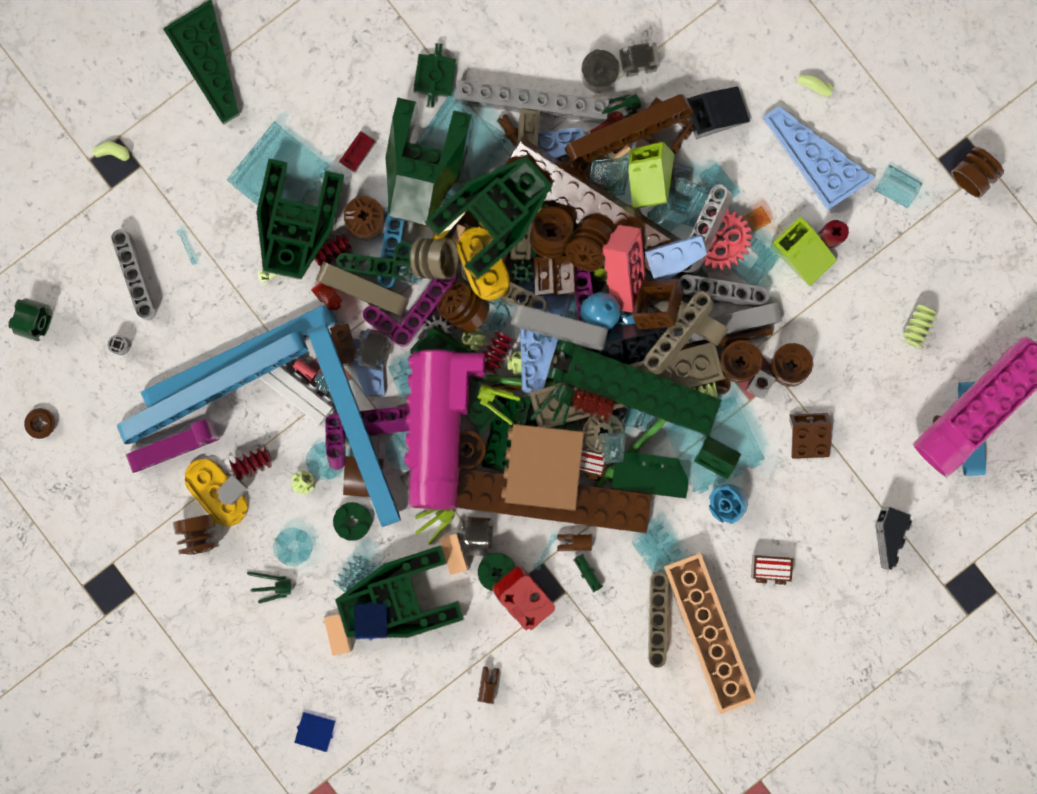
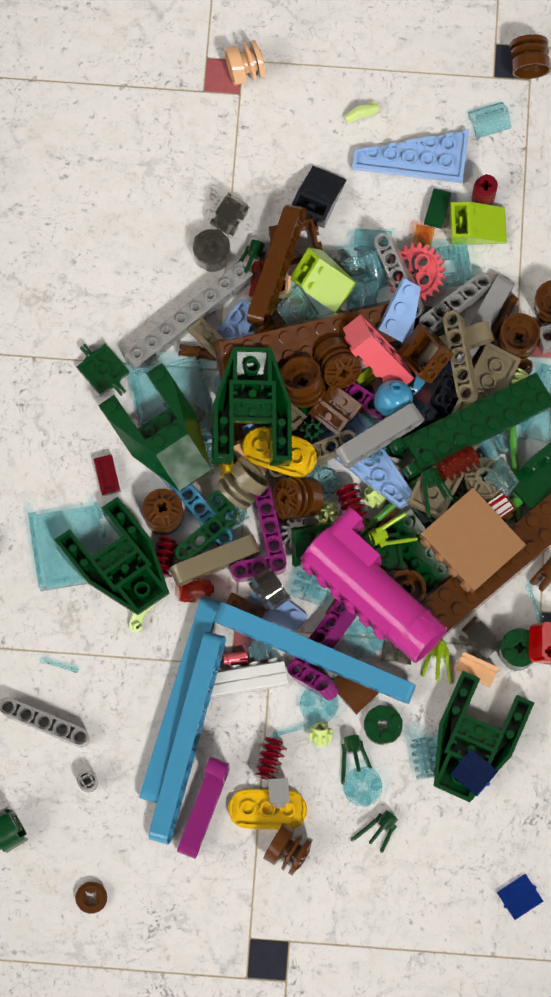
camera: 50 degrees left, 10 degrees down
(276, 449) = (276, 734): none -> clear light blue hinge
(316, 512) = (353, 745): none -> dark green plant
(337, 638) = (460, 811): light nougat panel -> none
(789, 210) = (437, 208): none -> dark green slope

